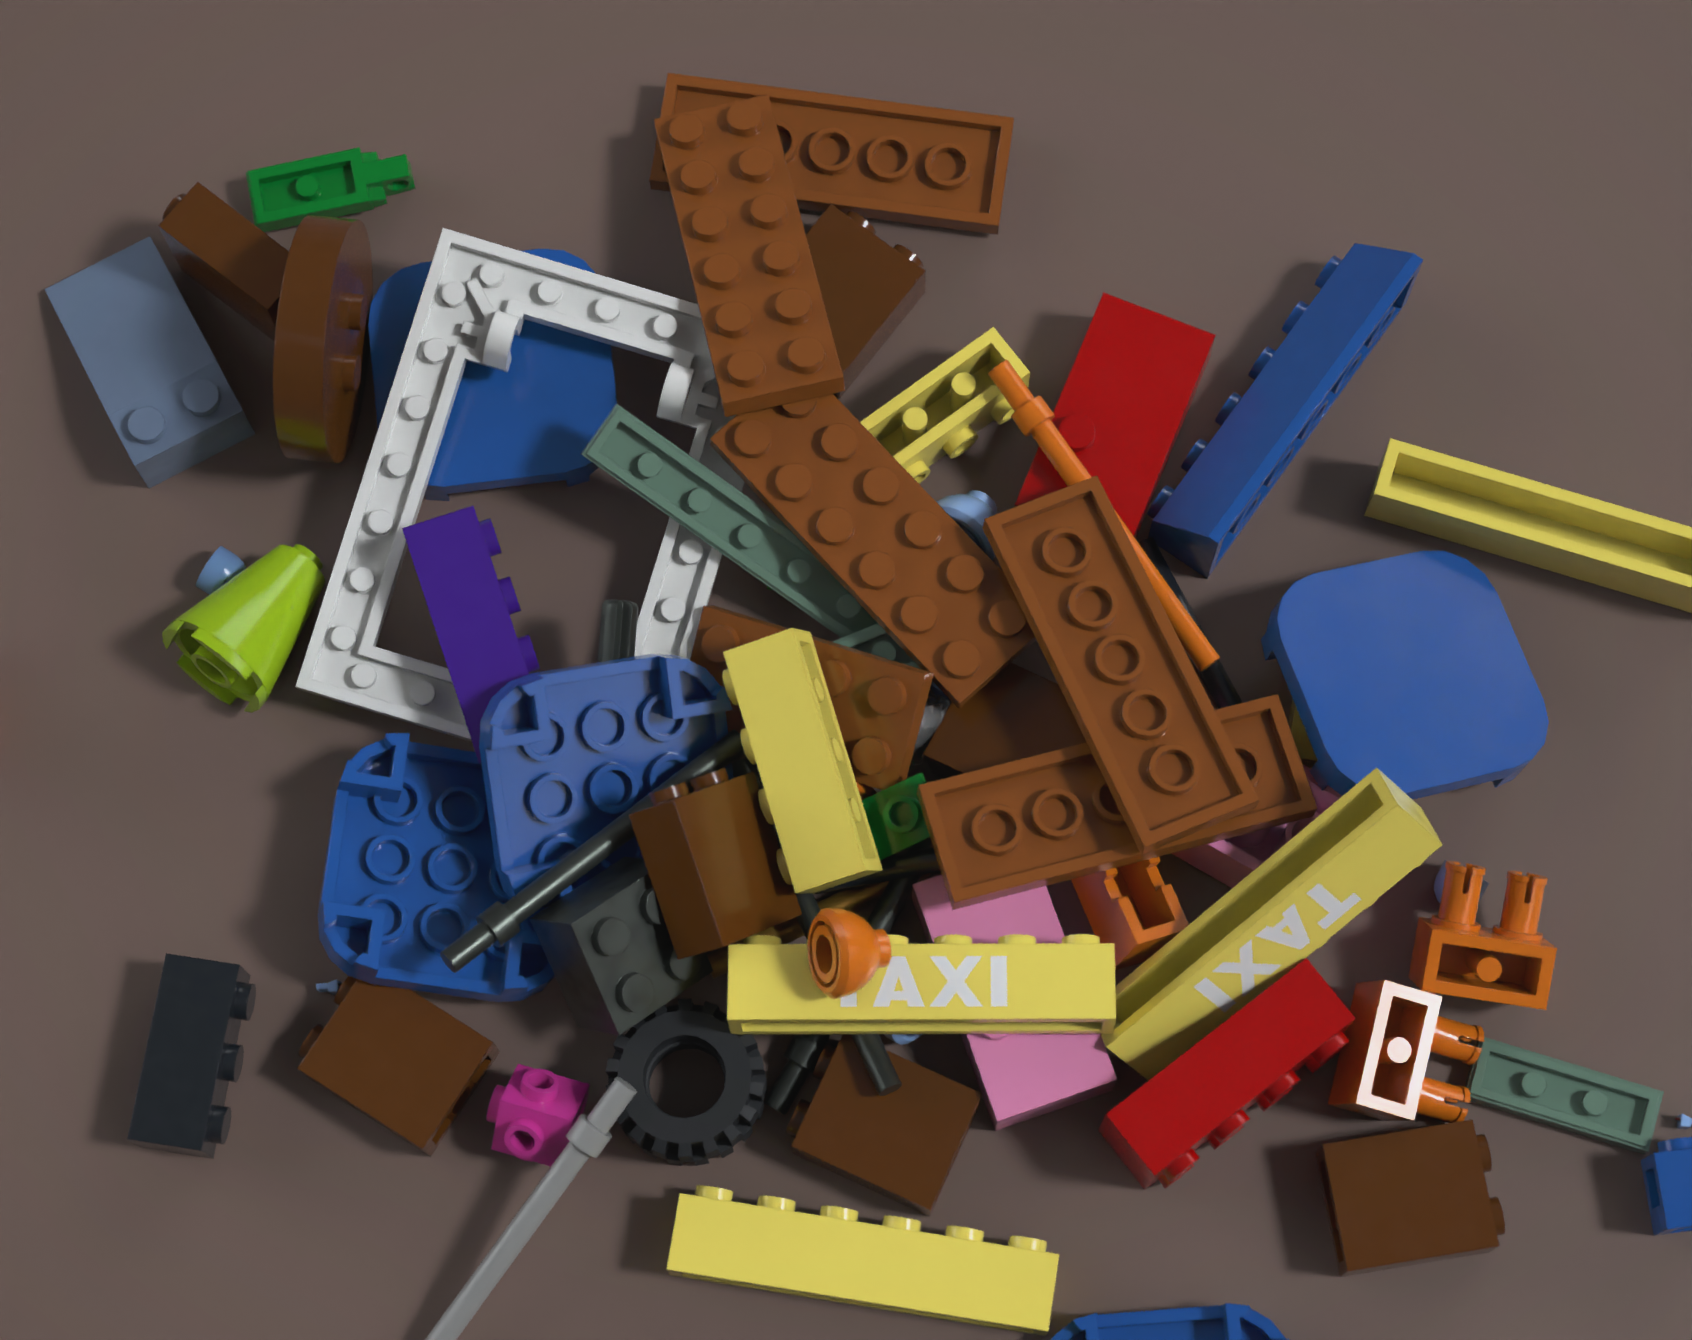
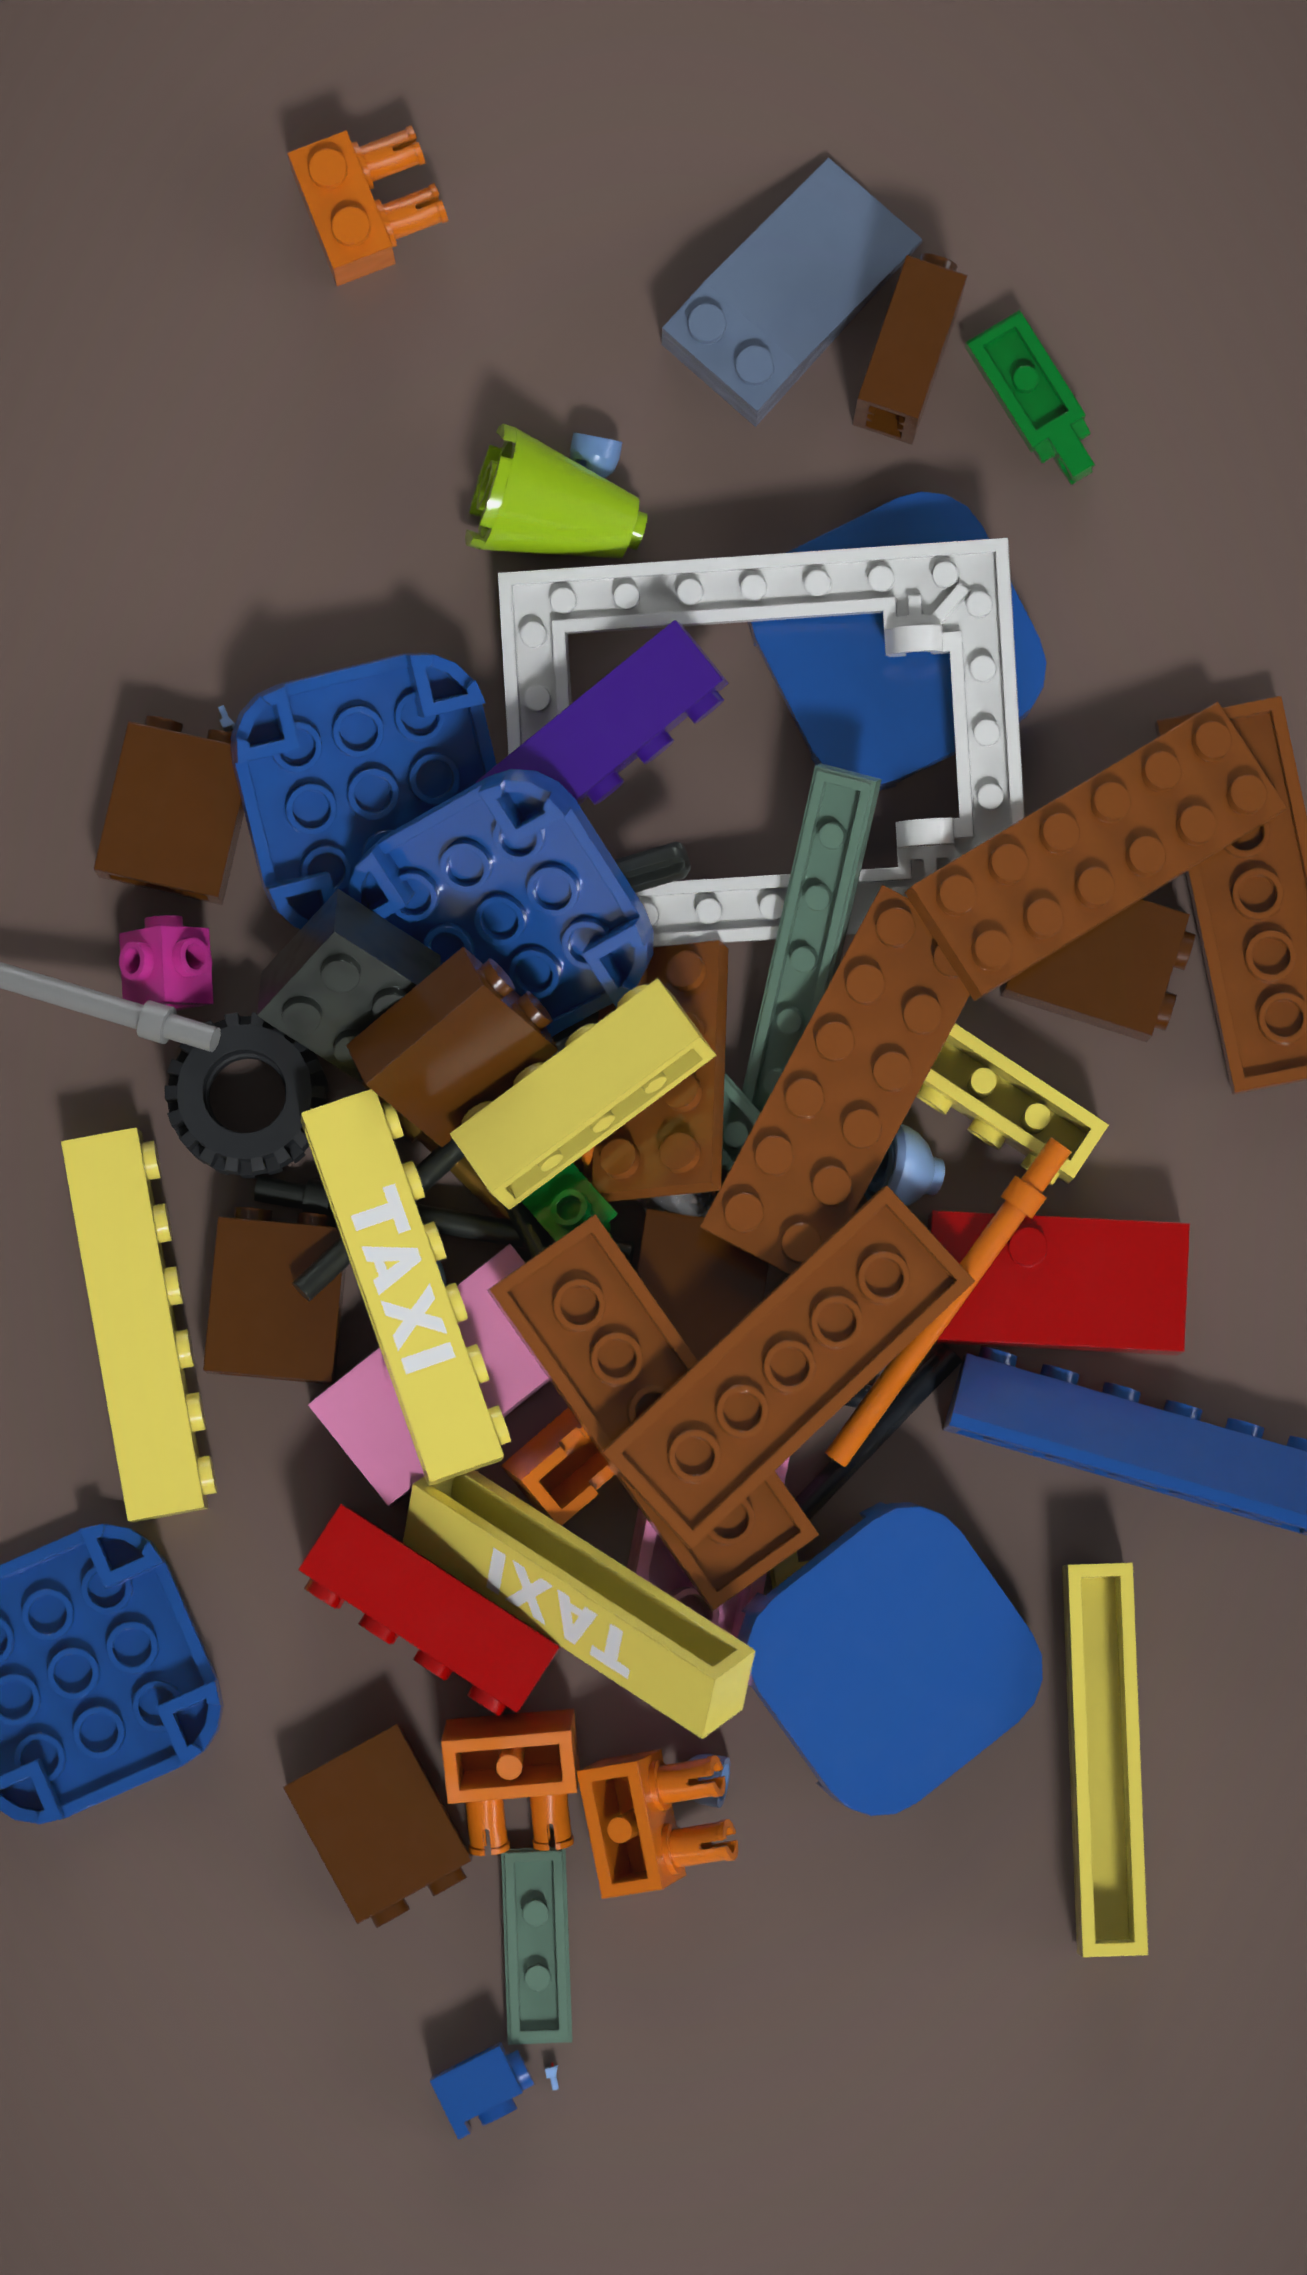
camera: 65 degrees right, 10 degrees up
(191, 1056) = (109, 615): black brick -> none
(322, 339) = (847, 464): reddish brown brick -> none
(502, 921) = (320, 863): pearl dark grey bar -> none
(845, 951) = (399, 1202): orange brick -> none

